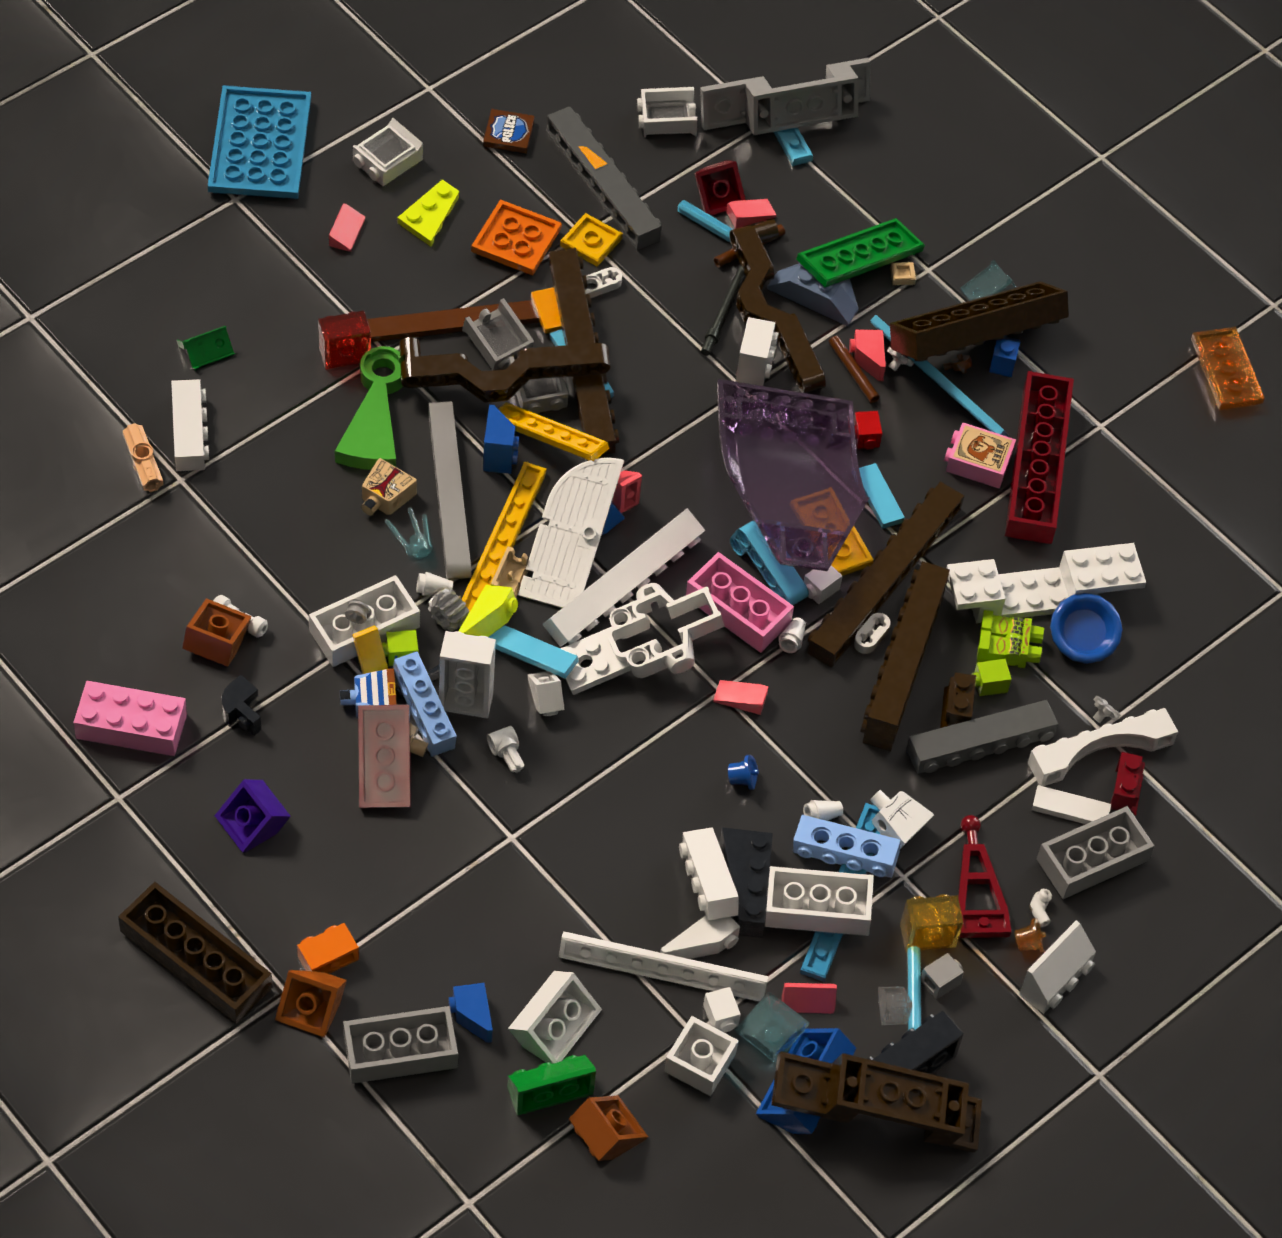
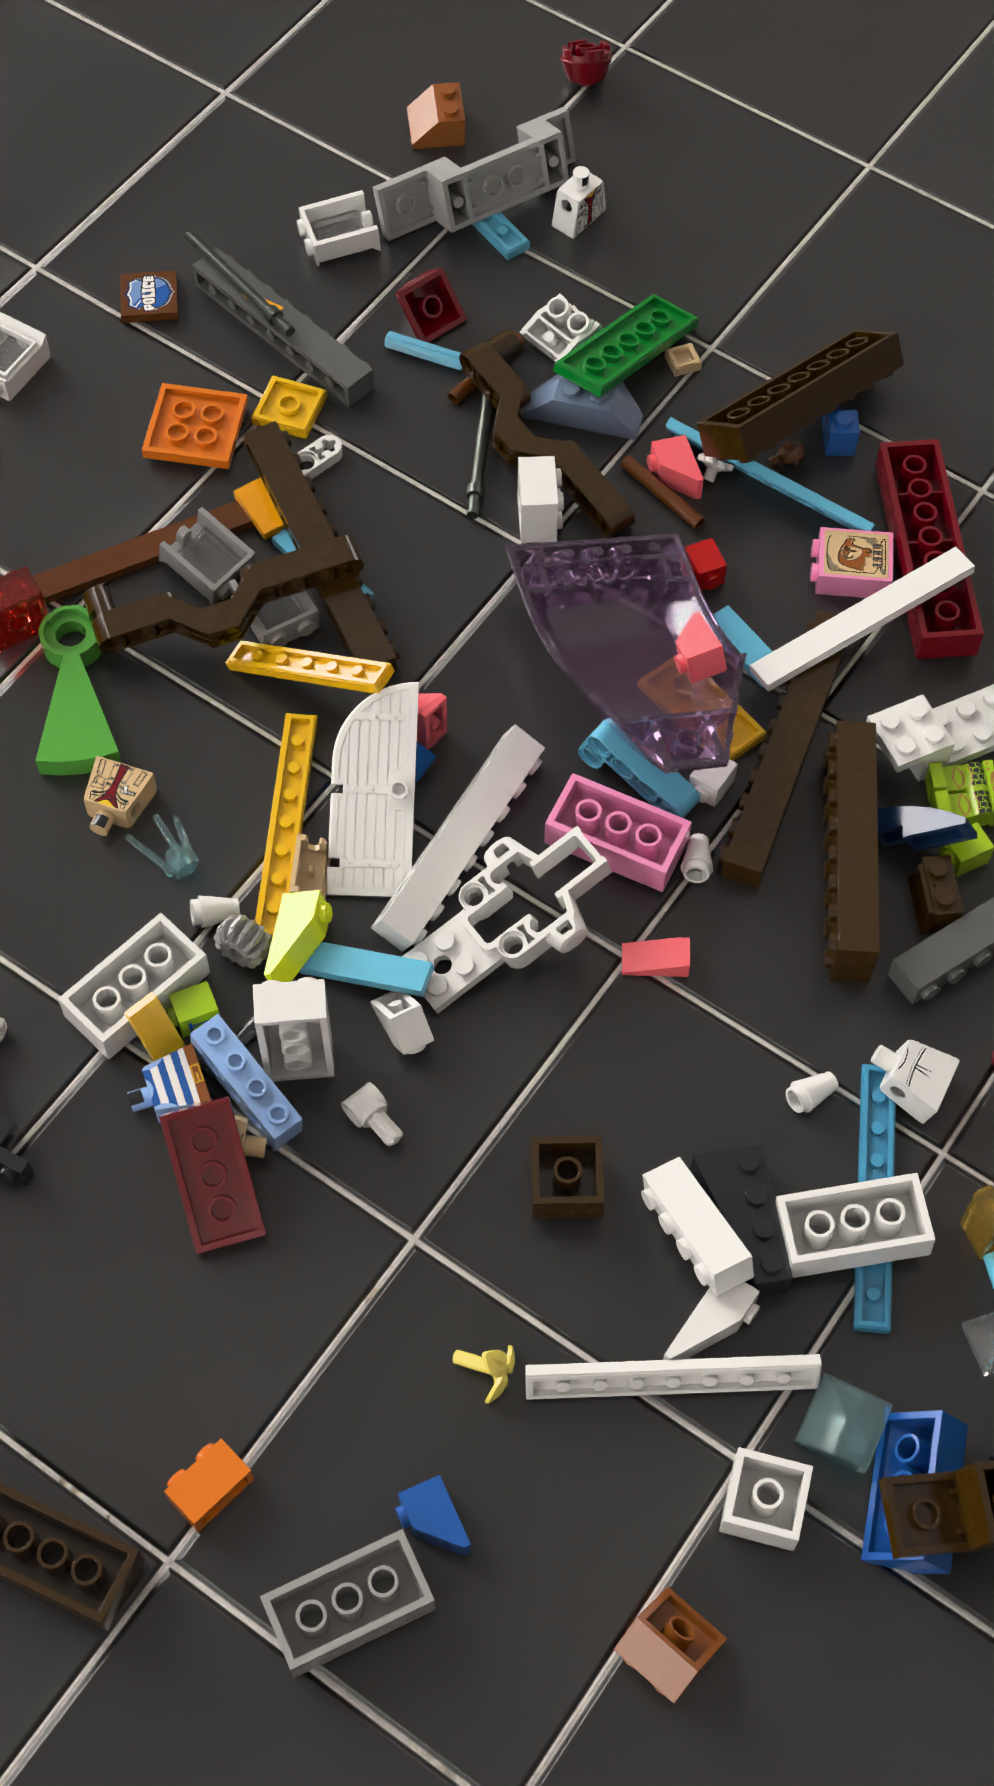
camera: 10 degrees left, 5 degrees up
(252, 814) = (52, 1306): dark purple slope -> none
(310, 1000) = (204, 1568): dark orange slope -> none
(357, 612) = (122, 979): light grey bush -> none
(428, 213) = (77, 420): neon yellow wing -> none
(449, 490) = (200, 778): light grey beam -> none
(499, 443) = (249, 697): blue slope -> none
(541, 925) = (493, 1363): none -> light yellow plant
(551, 1084) = (573, 1599): green slope -> none
(555, 1017) = (549, 1496): white slope -> none
(596, 166) = (271, 313): none -> pearl dark grey bar
(629, 821) = (567, 1177): none -> dark brown brick
(722, 1009) = (771, 1419): white brick -> none
(744, 772) = (694, 1065): blue piece -> none
(749, 212) = (473, 327): coral slope -> none
(770, 42) = (437, 117): none -> dark orange slope
(810, 997) = (880, 1366): coral slope -> none
(813, 227) = (559, 328): none -> white slope
(835, 487) = (699, 650): none -> coral slope
(838, 836) = (877, 1123): light blue brick -> none
(859, 134) = (578, 202): none -> white torso
(867, 630) = (789, 827): white beam -> none
(900, 23) = (586, 61): none -> dark red cone
(960, 651) = (922, 827): none -> dark blue slope
(968, 495) = (862, 619): none -> white tile
(987, 282) = (789, 347): clear light blue piece -> none

